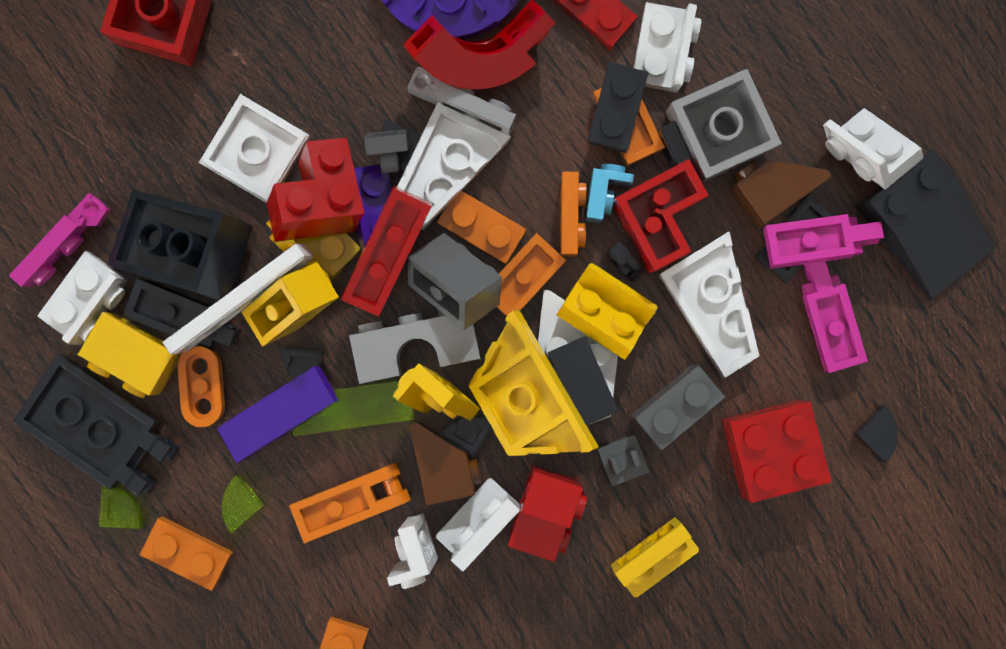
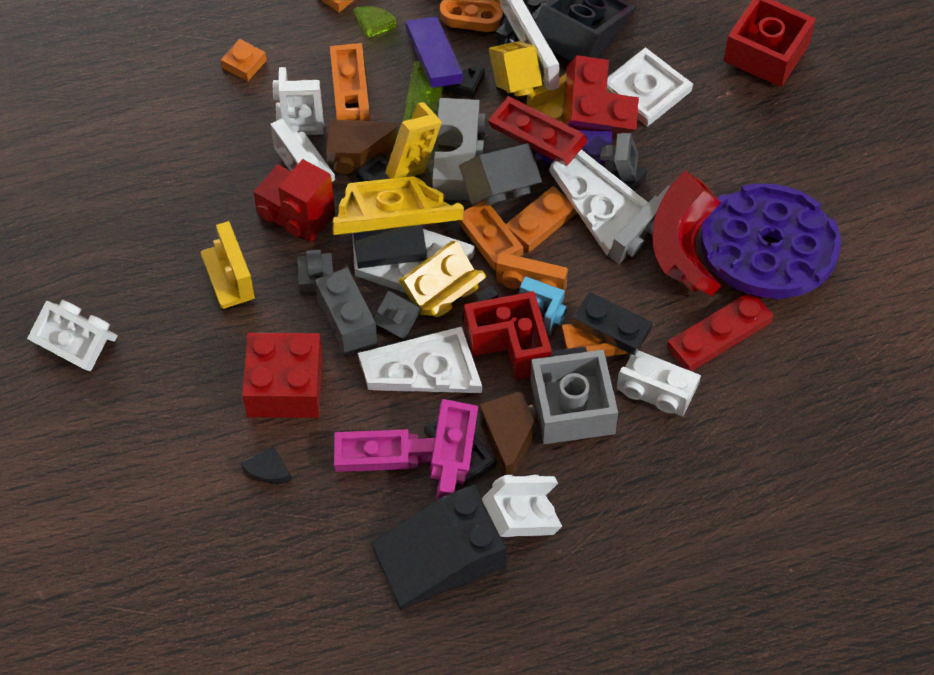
camera: 105 degrees right, 30 degrees down
(659, 351) = (396, 315): none -> dark grey tile

